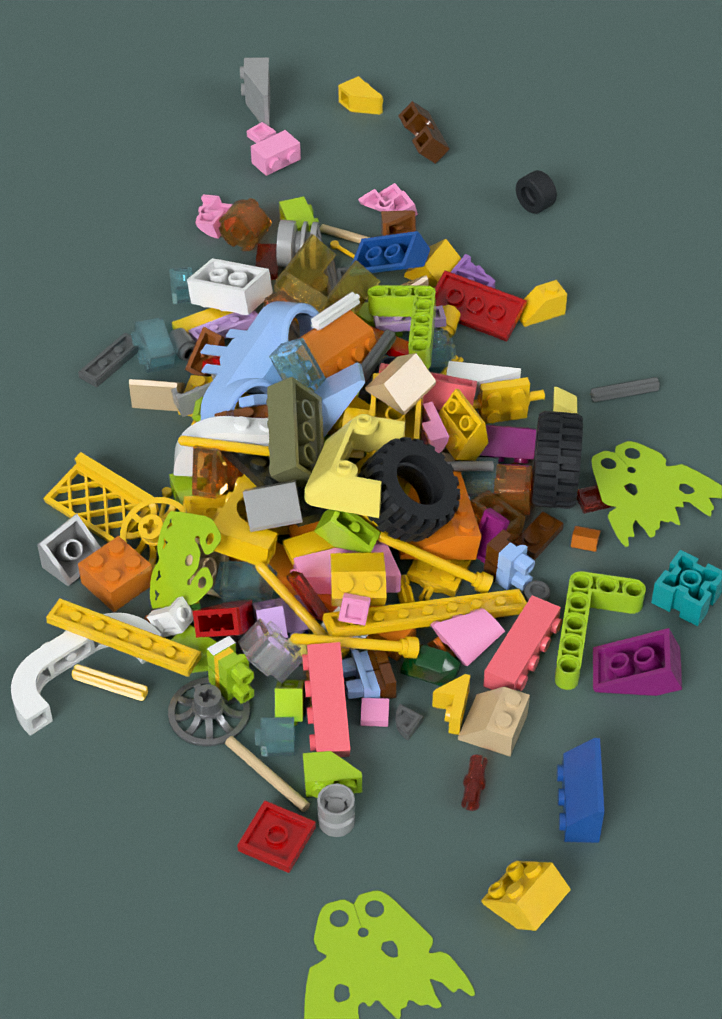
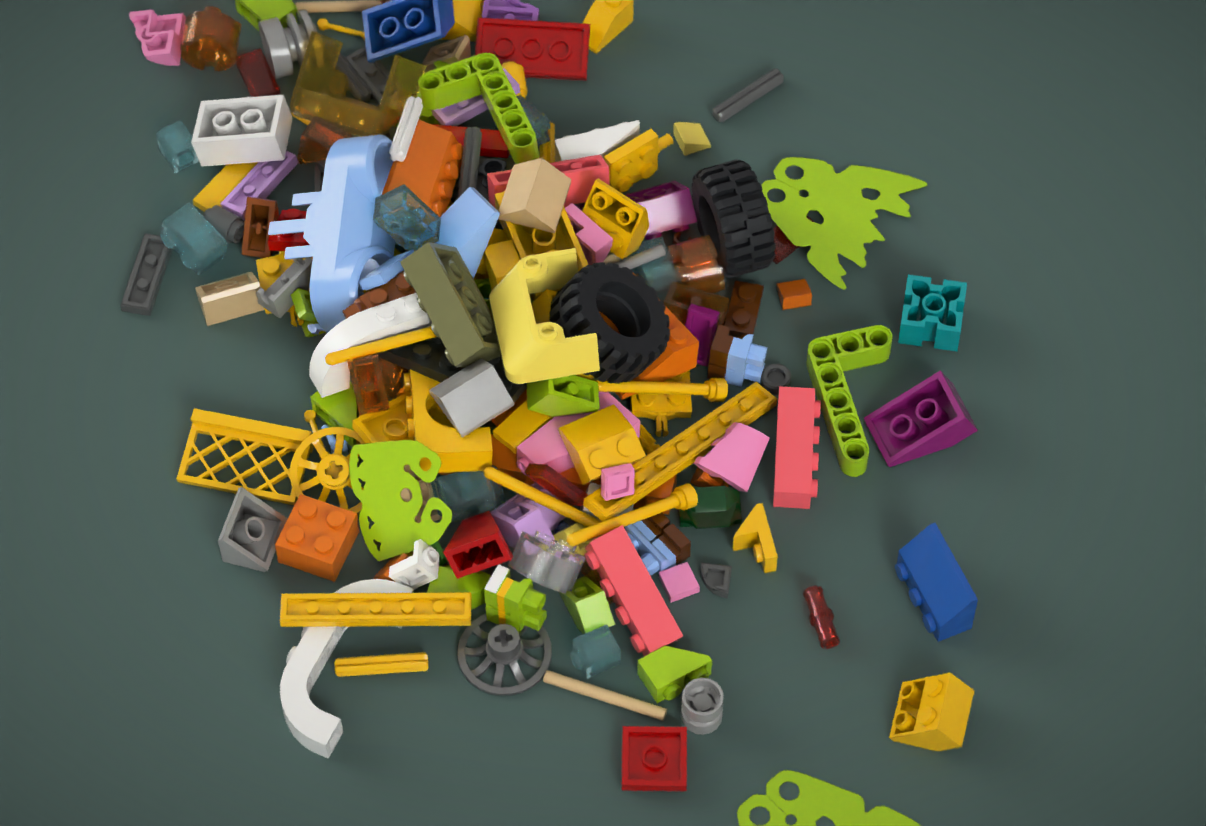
camera: 25 degrees left, 10 degrees up
(496, 720) = (808, 540): tan slope -> none

